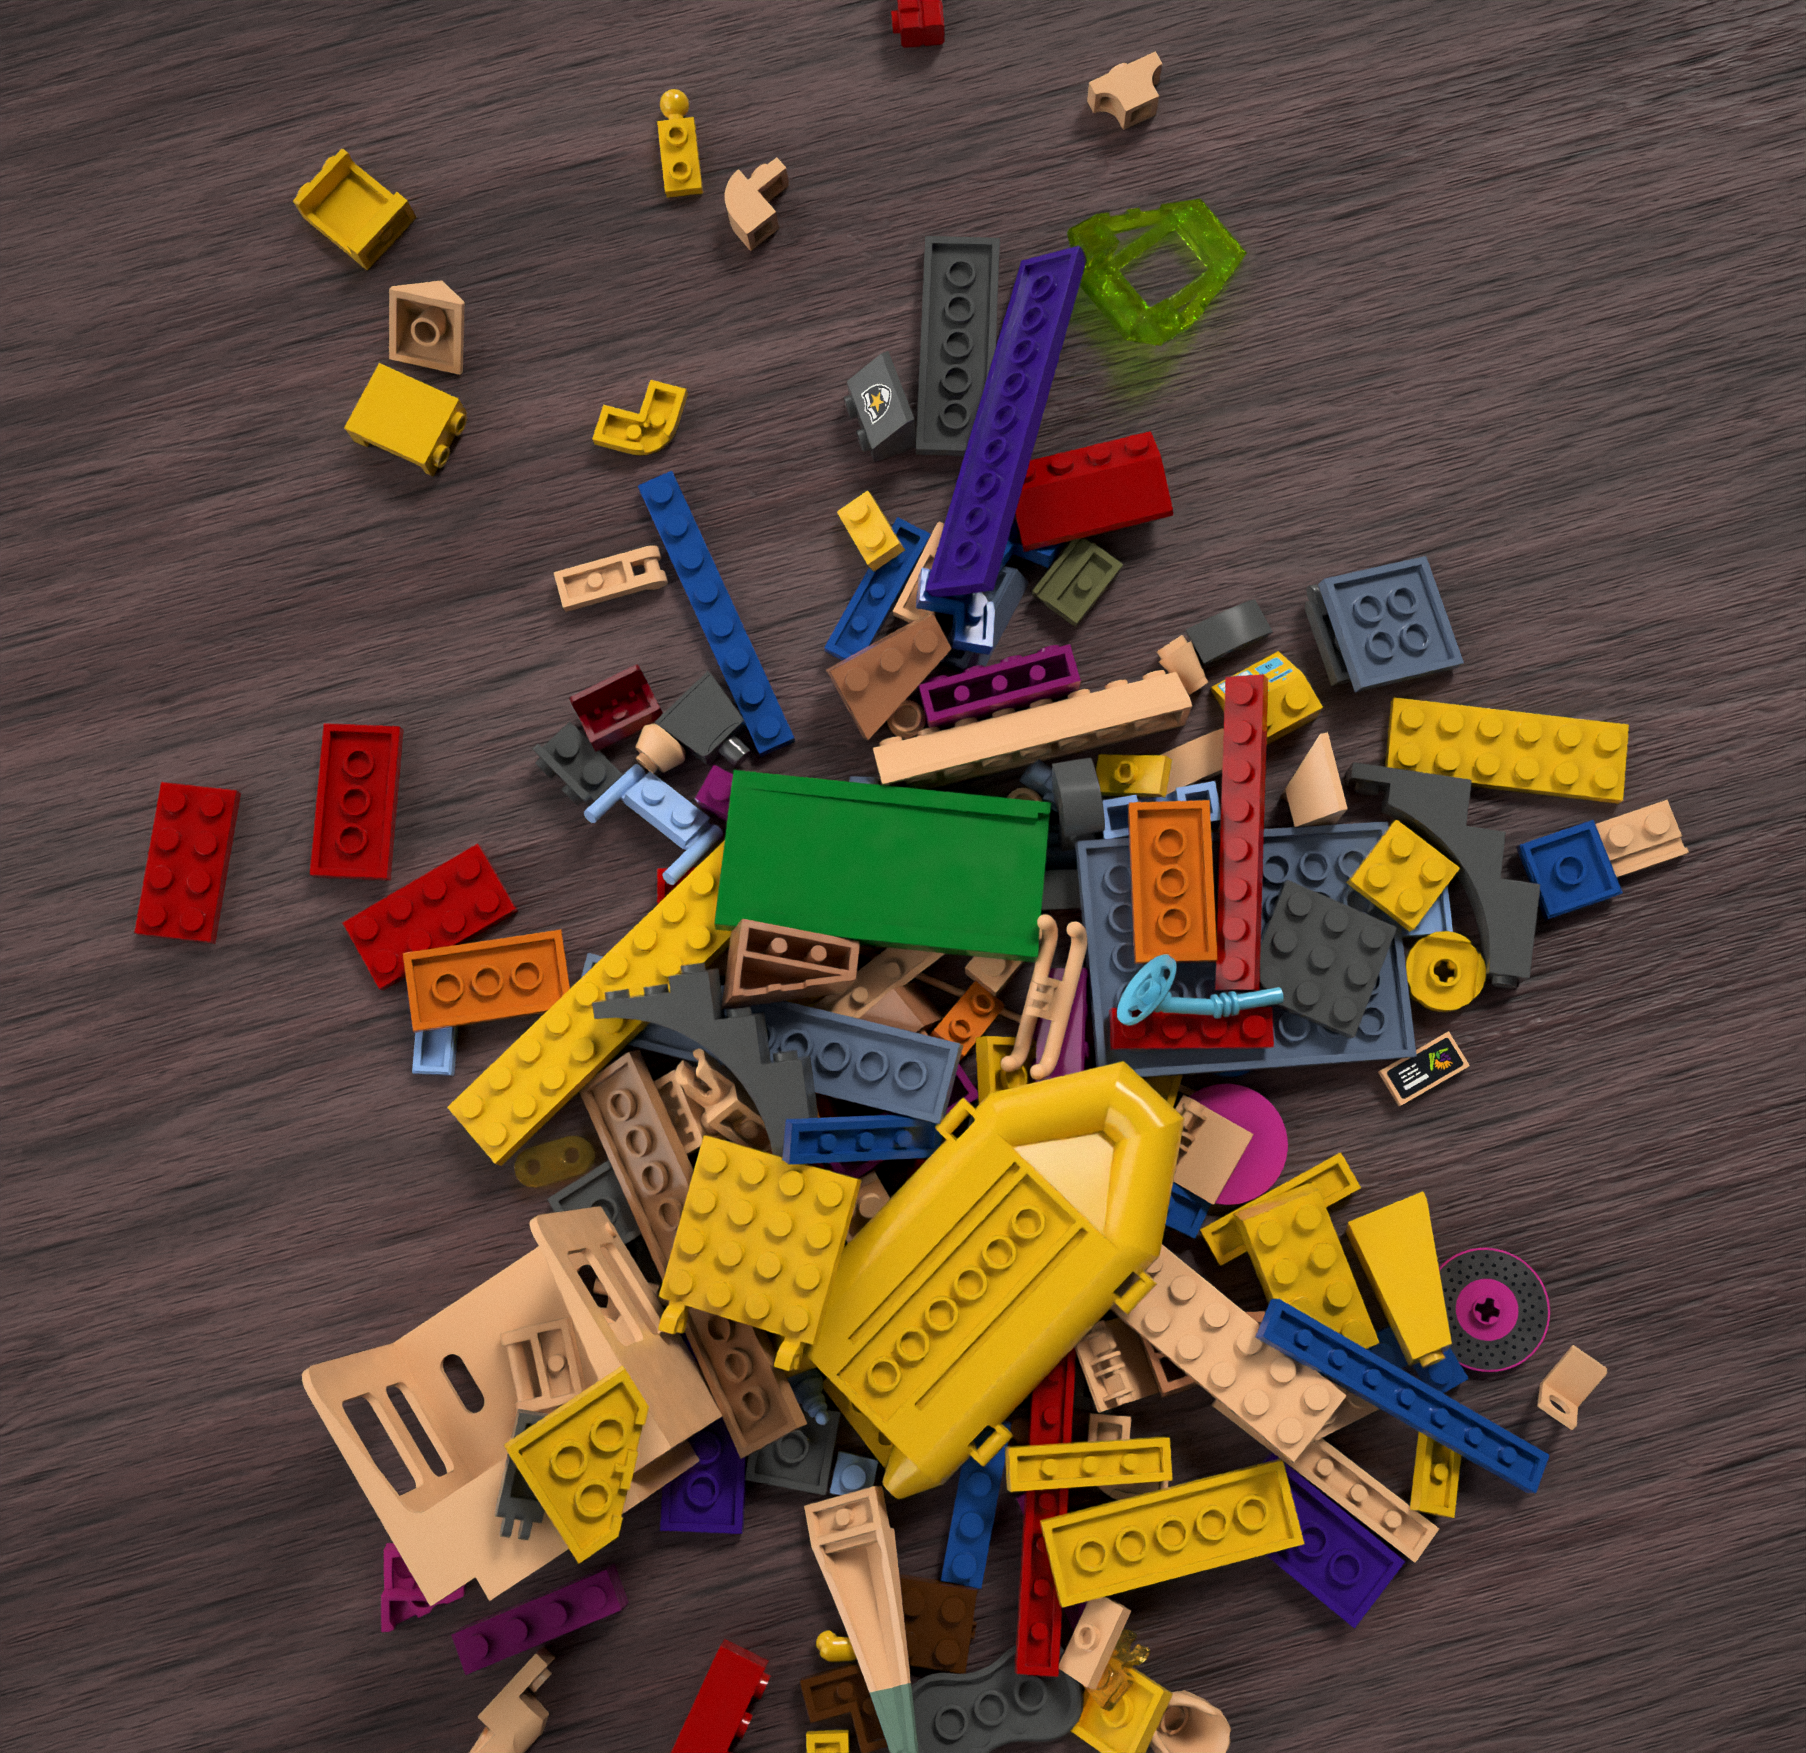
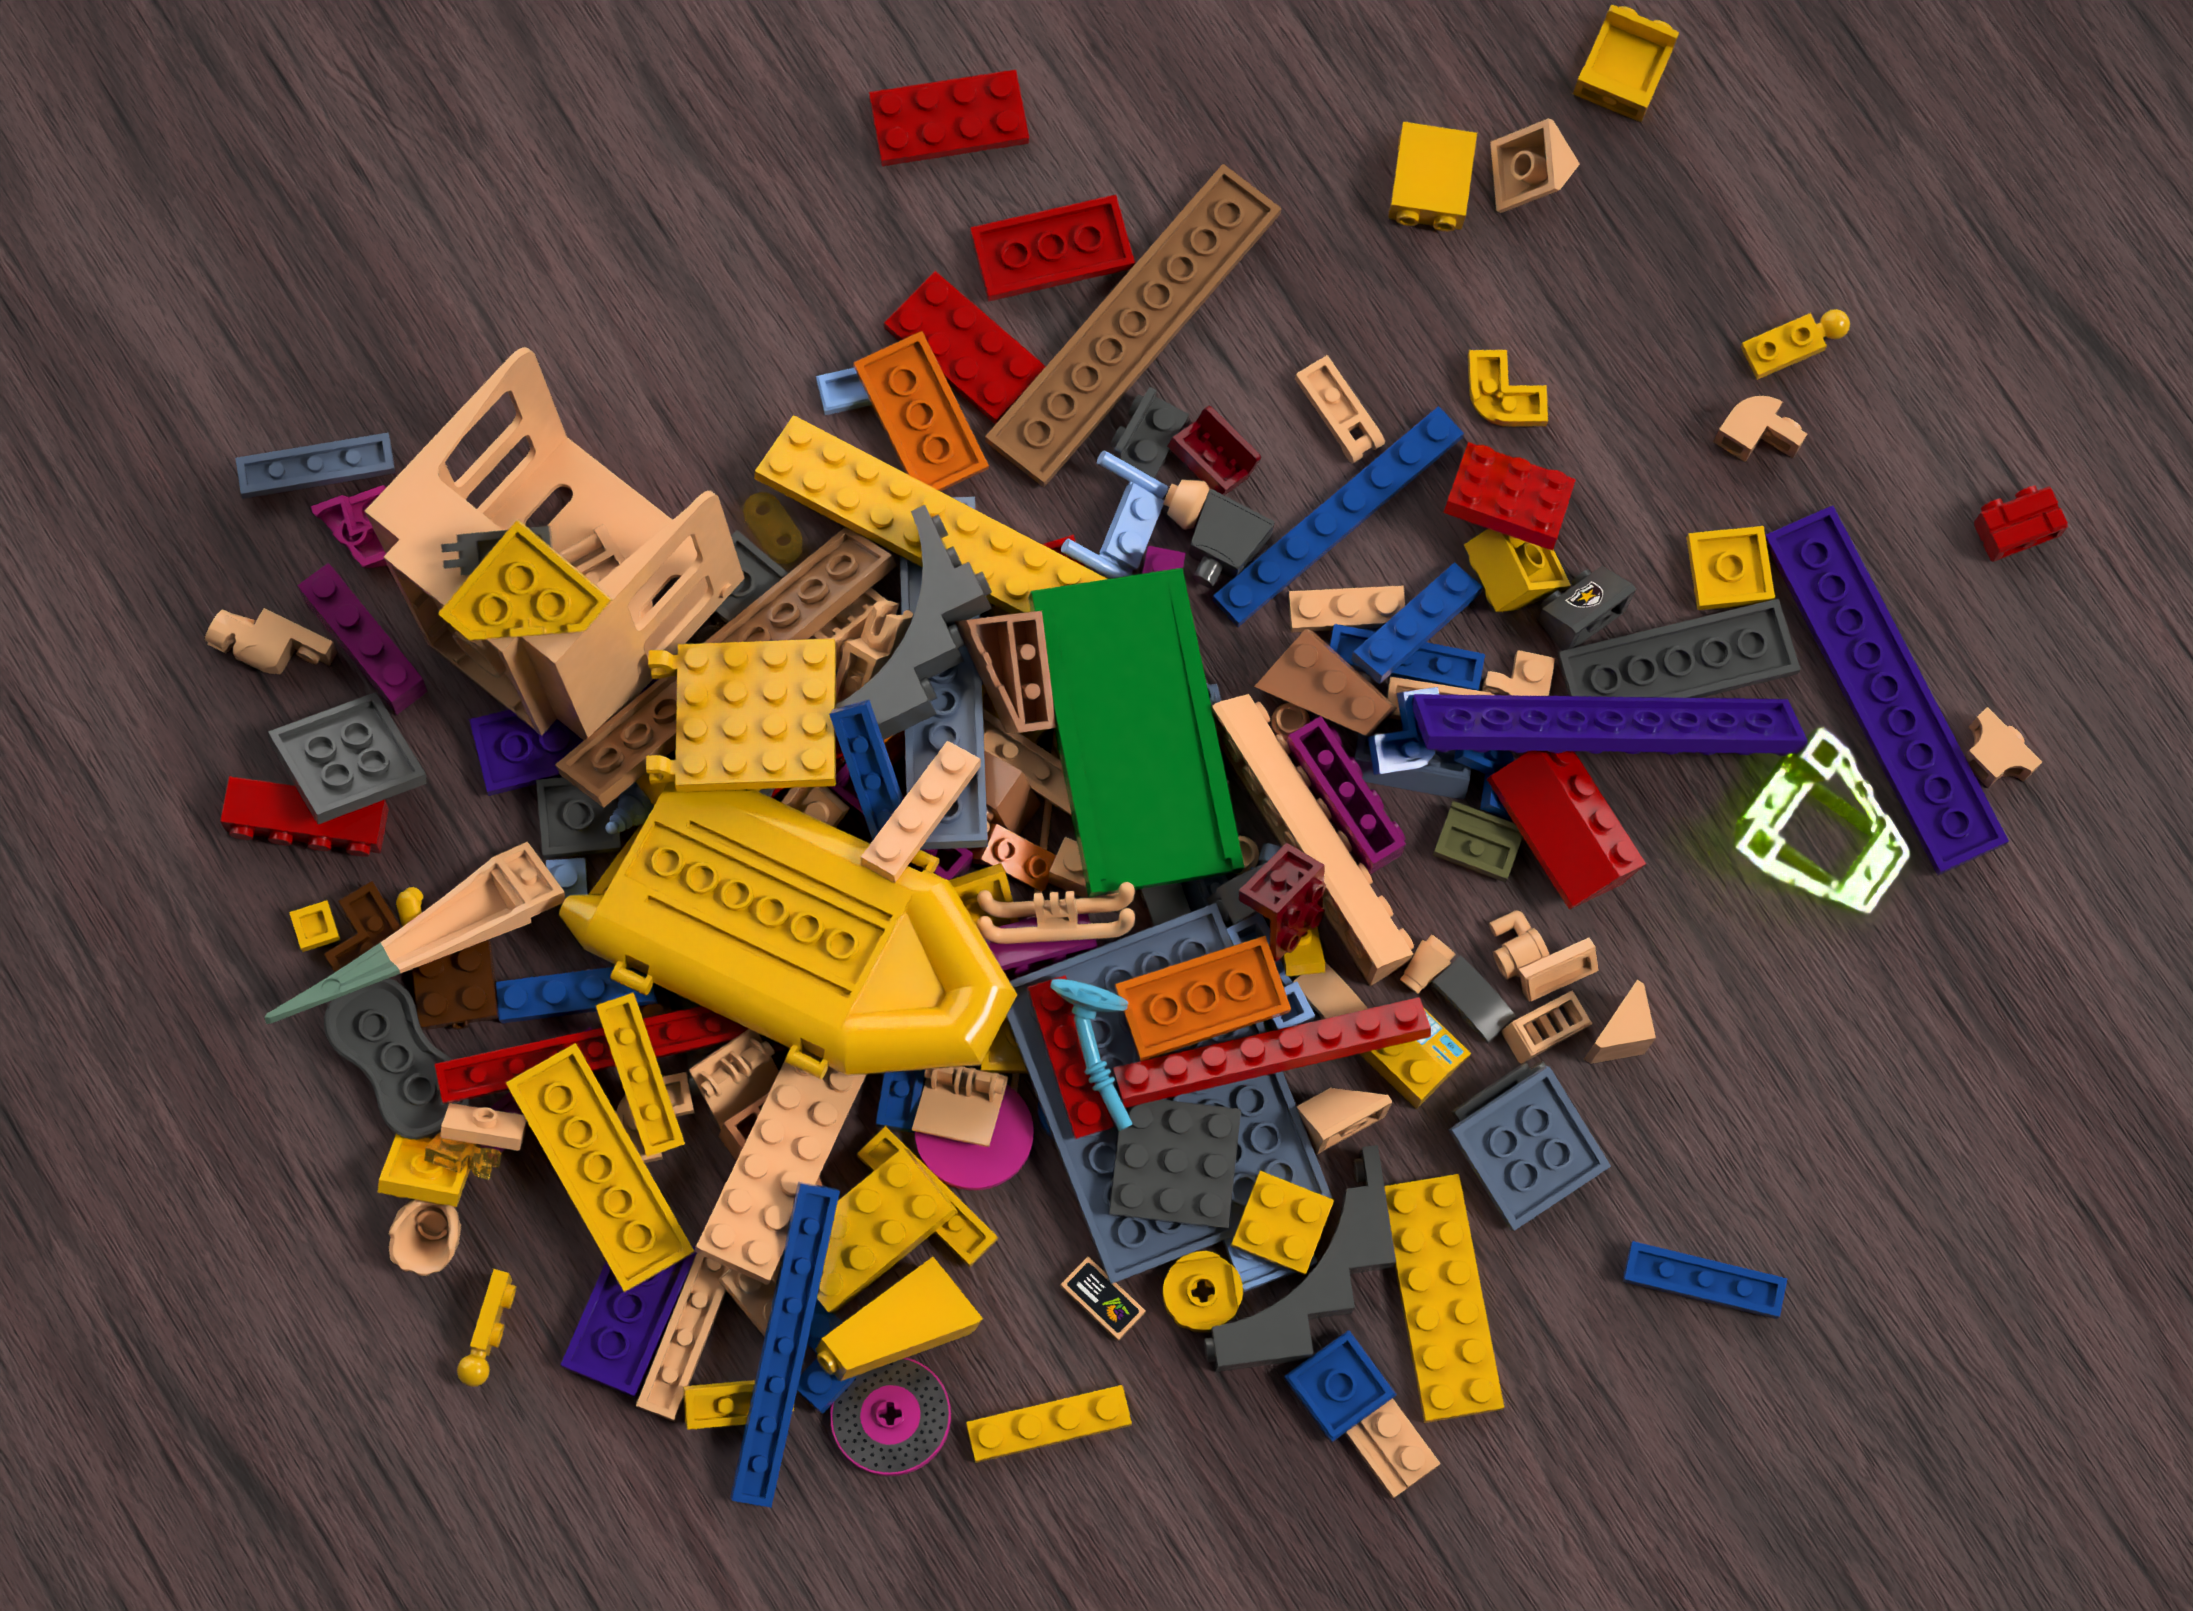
camera: 55 degrees right, 5 degrees down
(339, 1615) = (315, 465): none -> sand blue plate
(462, 748) = (1132, 325): none -> medium nougat plate
(665, 1674) = (347, 758): none -> dark grey plate
(752, 443) = (1510, 495): none -> red plate
(810, 632) = (1348, 607): none -> light nougat plate
(817, 462) = (1514, 570): none -> yellow slope
(848, 570) = (1416, 623): none -> blue plate
(870, 531) = (1463, 633): yellow plate -> none
(880, 270) = (1730, 567): none -> yellow plate
(912, 1101) = (920, 811): none -> light nougat plate
(931, 486) = (1529, 676): none -> light nougat plate
(1039, 171) = (1885, 690): none -> dark purple plate
(1095, 768) = (1289, 894): none -> dark red bracket
(1197, 571) = (1521, 950): none -> light nougat piece
(1224, 544) = (1559, 969): none -> light nougat tile
(1278, 597) = (1524, 1037): none -> light nougat slope
(1300, 499) = (1628, 1031): none -> light nougat slope
(1333, 1717) = (473, 1368): none -> yellow plate
(1532, 1157) = (1048, 1423): none -> yellow plate
(1554, 506) = (1704, 1280): none -> blue plate
(1569, 1385) = (840, 1508): light nougat bracket -> none

